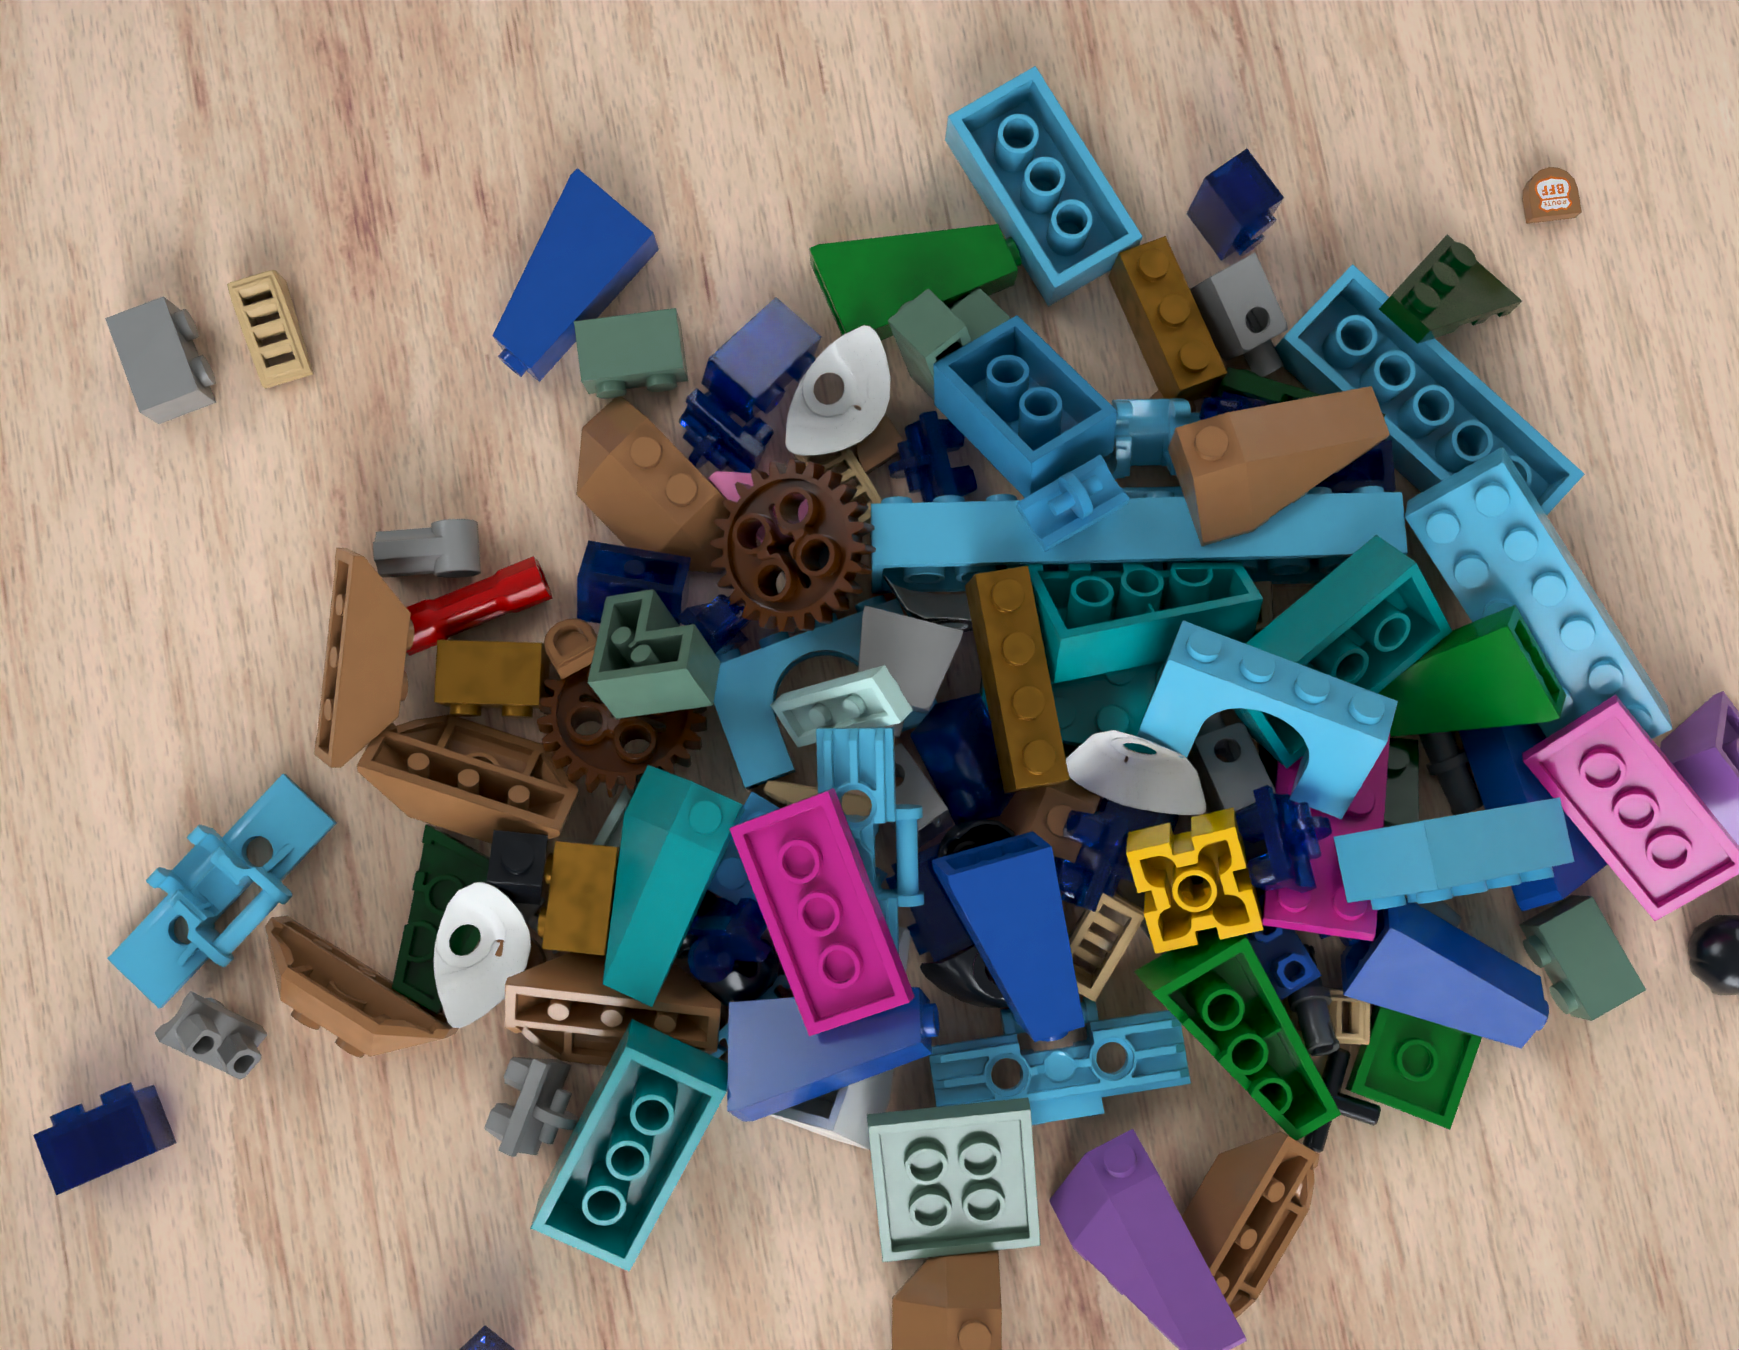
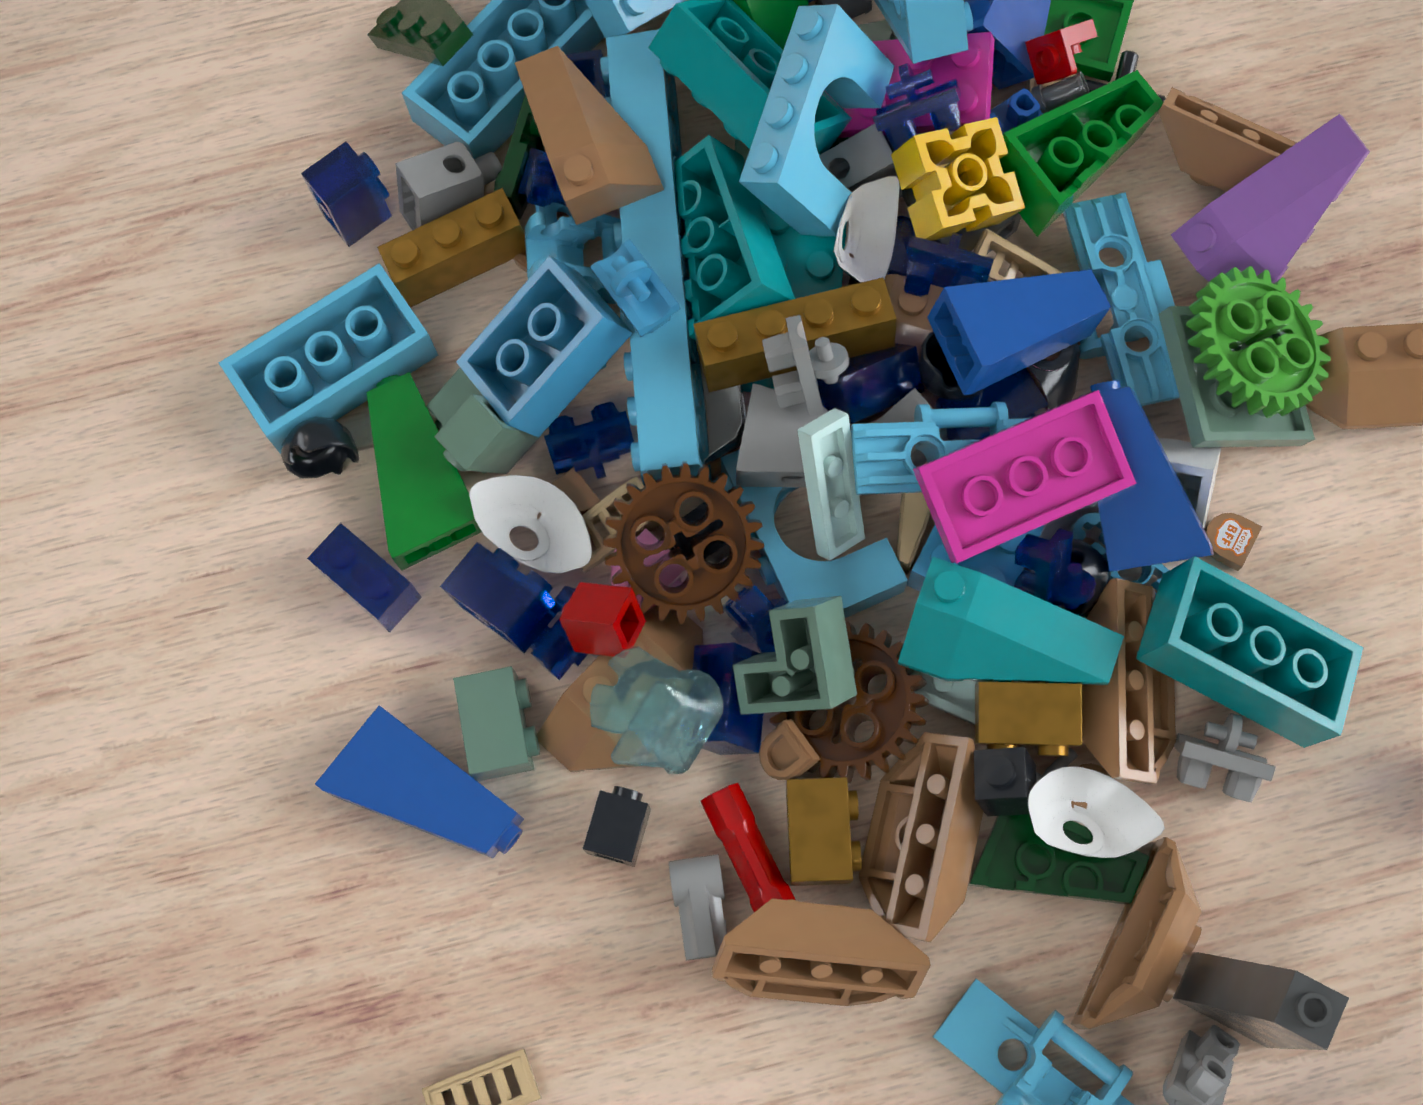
camera: 85 degrees left, 10 degrees down
(261, 1100) = (1262, 1001): none -> dark grey slope
(515, 471) = (617, 826): none -> black brick
(615, 511) = (657, 710): none -> clear light blue piece
(714, 458) = (602, 619): none -> red brick
(777, 1151) = (1232, 538): none -> tile
(795, 221) = (364, 577): none -> clear blue brick
(942, 174) = (318, 448): none -> black hair
(965, 677) = (821, 362): none -> light grey hips
(1033, 1193) = (1269, 372): none -> bright green gear
(1376, 1019) = (1053, 53): none -> red bracket

